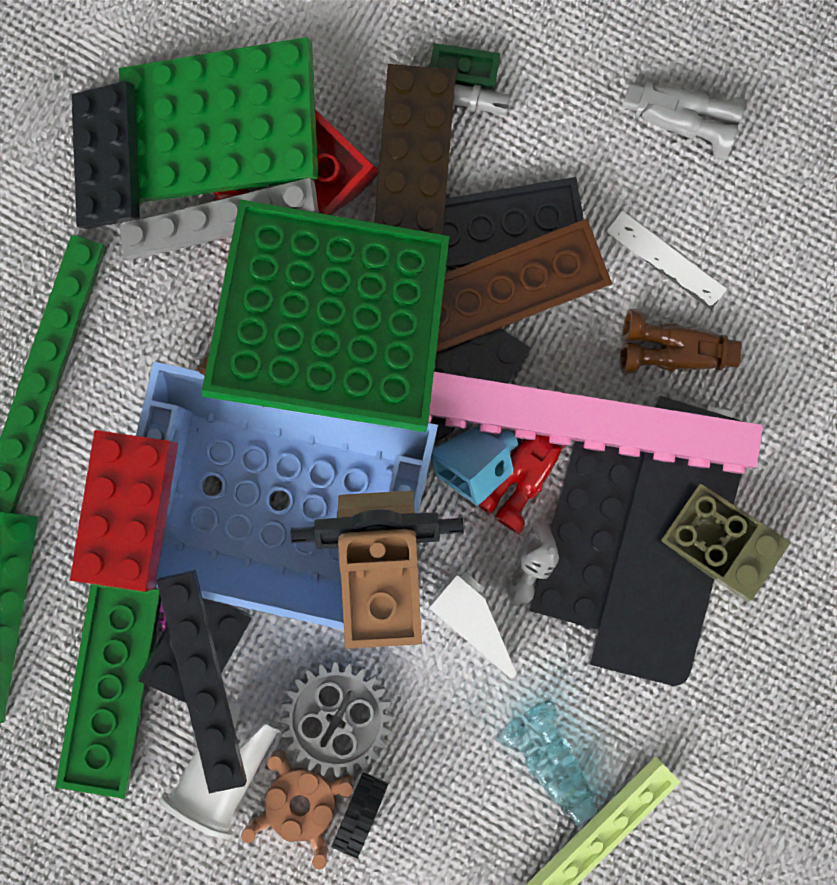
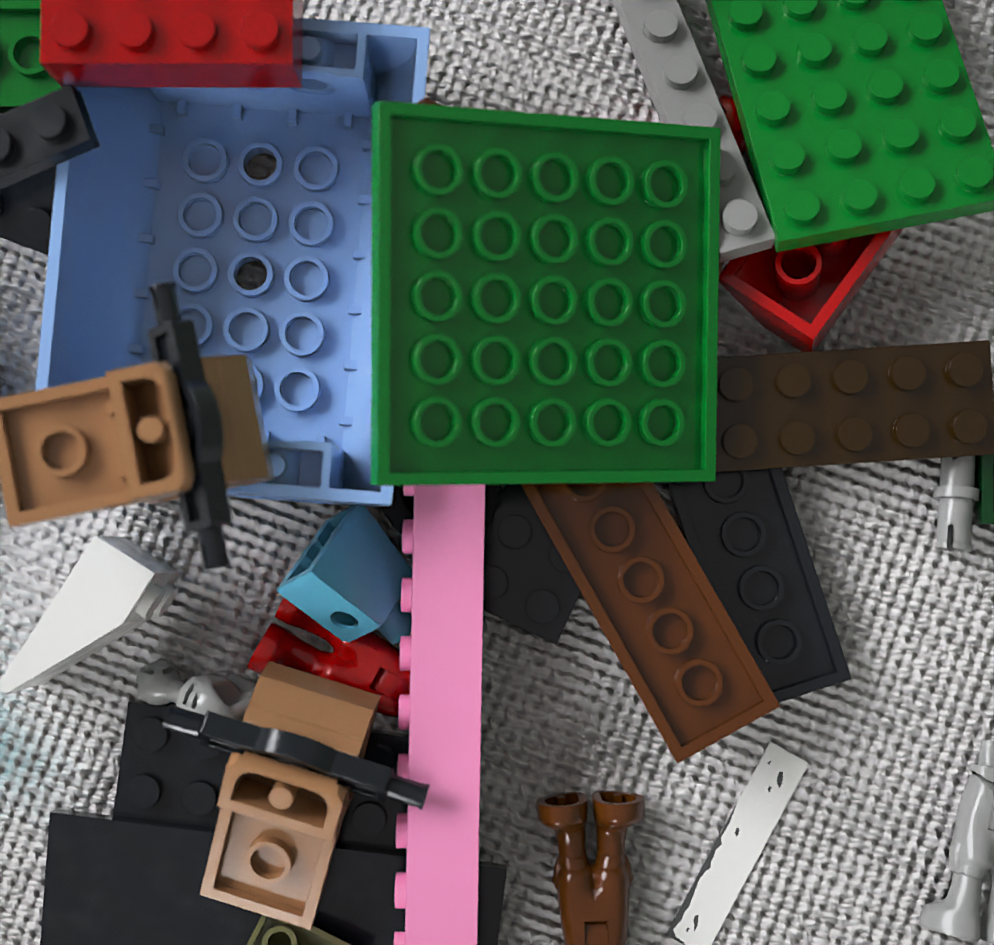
camera: 80 degrees right, 0 degrees up
(596, 513) = (288, 788): none -> medium nougat piece

